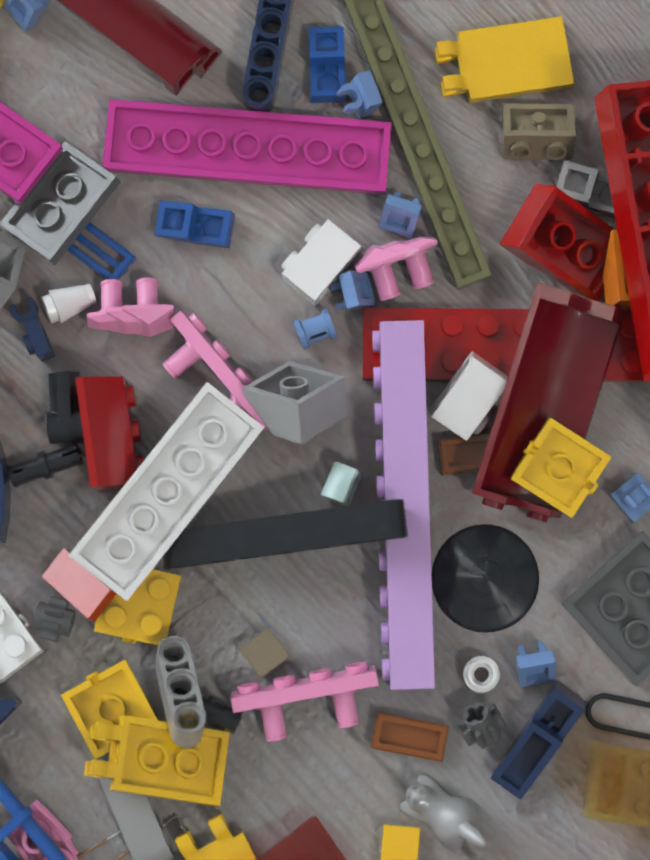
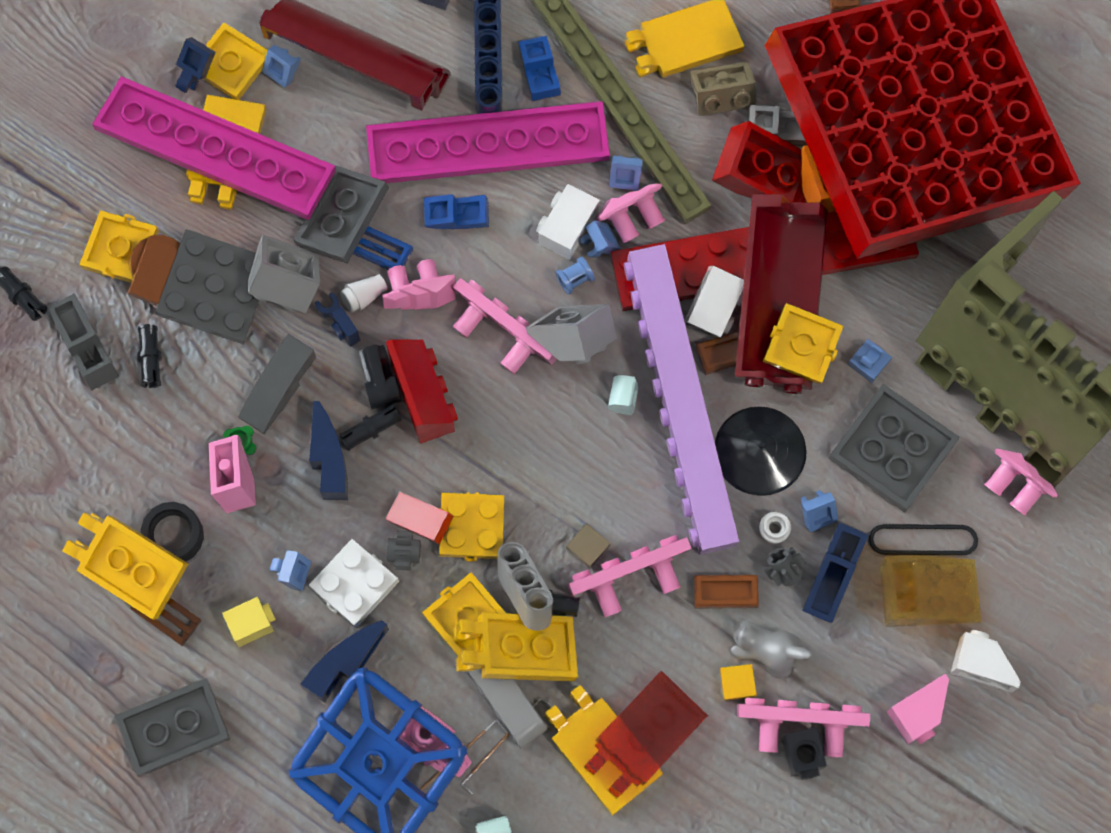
camera: 15 degrees left, 10 degrees down
(166, 491) = (479, 423): white plate -> none
(288, 534) = (585, 439): black beam -> none
(363, 95) = (574, 84): medium blue tile -> none

